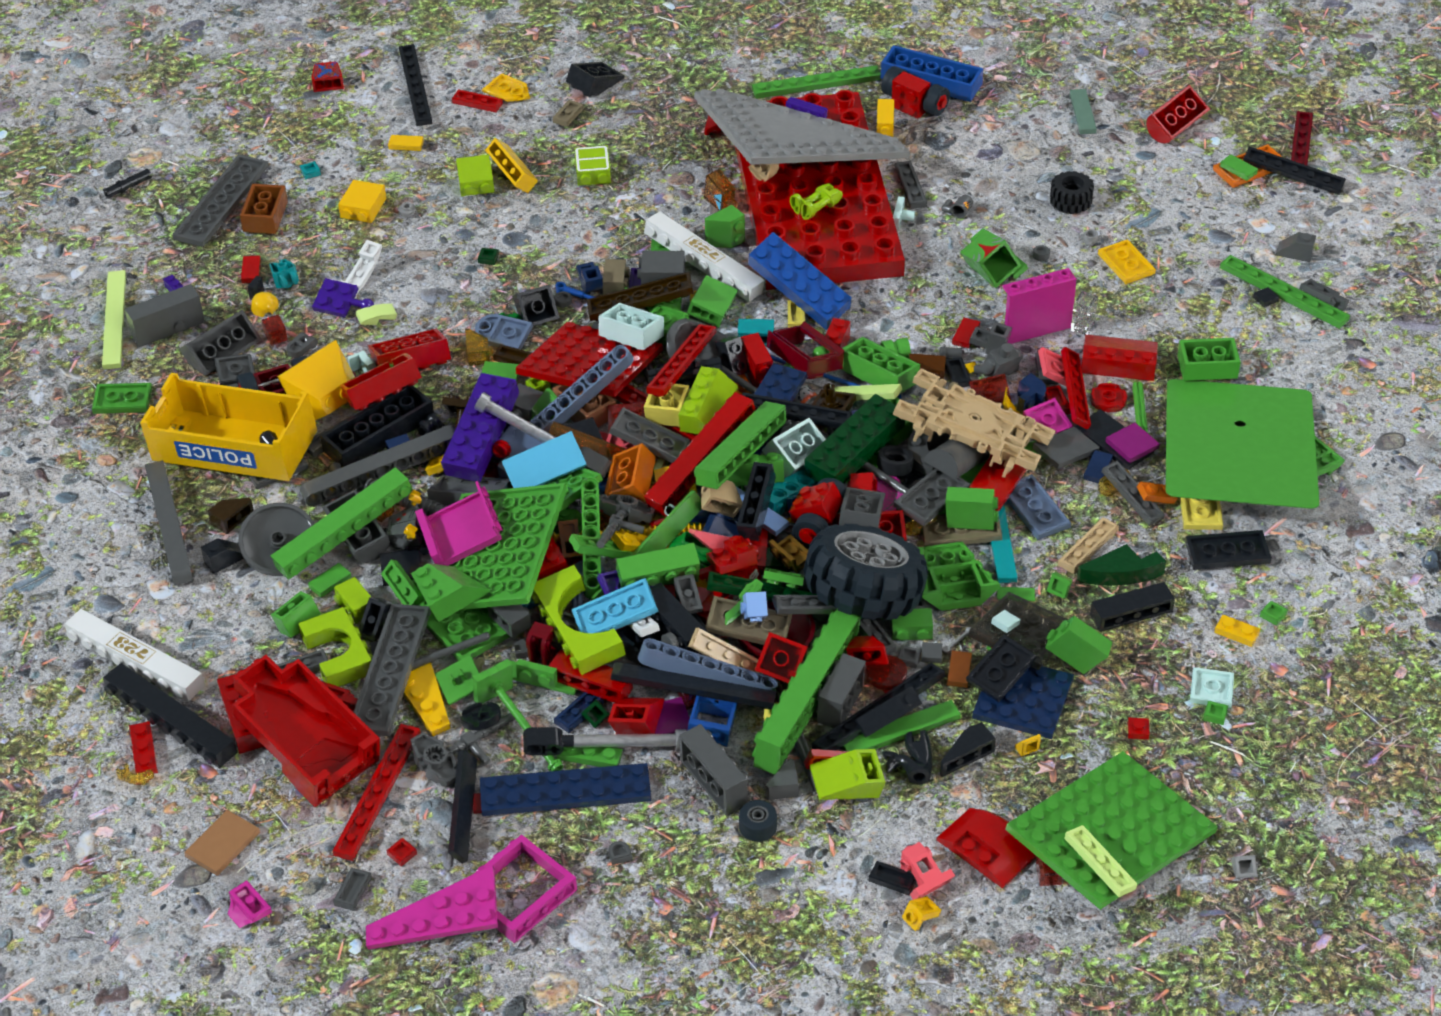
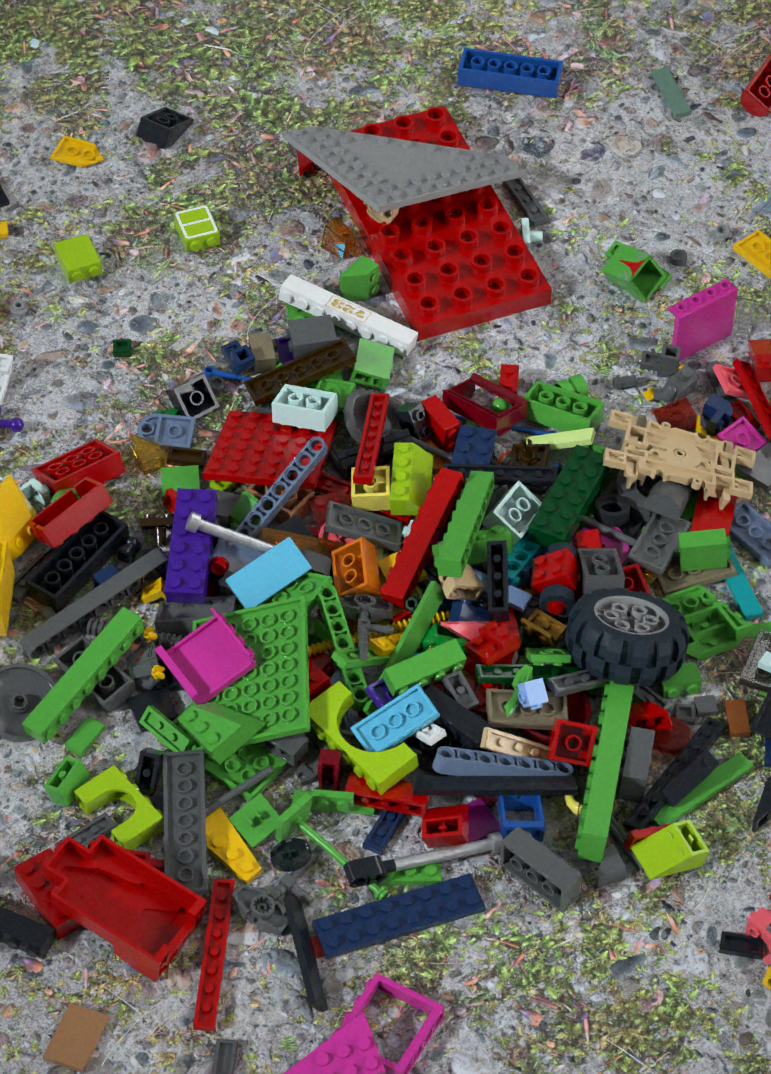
camera: 15 degrees left, 5 degrees up
(352, 597) = (119, 752): lime brick -> none
(372, 314) = (28, 432): yellowish green slope -> none
(401, 852) = (259, 1012): red tile -> none
(477, 101) = (48, 171): red tile -> none
(511, 165) = (113, 242): yellow brick -> none
(567, 528) = (322, 652): reddish brown brick -> none
(568, 113) = (150, 172): dark tan plate -> none
(596, 713) = (403, 830): dark green slope -> none
(619, 852) = (473, 971): dark grey tile -> none
(670, 638) = (458, 742): dark grey tile -> none
(752, 326) = (423, 388): teal brick -> none
(758, 820) = (597, 912): black wheel -> none
(796, 315) = (458, 363): light yellow tile -> none
(799, 280) = (456, 329): blue brick -> none
(807, 107) = (402, 133): dark purple piece -> none
(816, 82) = (393, 98): bright green plate -> none
(824, 194) = (451, 229): lime piece -> none
(885, 116) = (482, 133): yellow brick -> none
(914, 94) = (500, 100): brick -> none
(920, 766) = (731, 825): black piece -> none
(930, 363) = (613, 398): reddish brown brick -> none
(946, 649) = (733, 676): light grey hinge -> none
(957, 371) = (636, 401): black tile -> none
(960, 207) = (584, 220): dark grey piece -> none
(964, 332) = (632, 357): red tile -> none
(1071, 192) = (689, 186): black tyre -> none

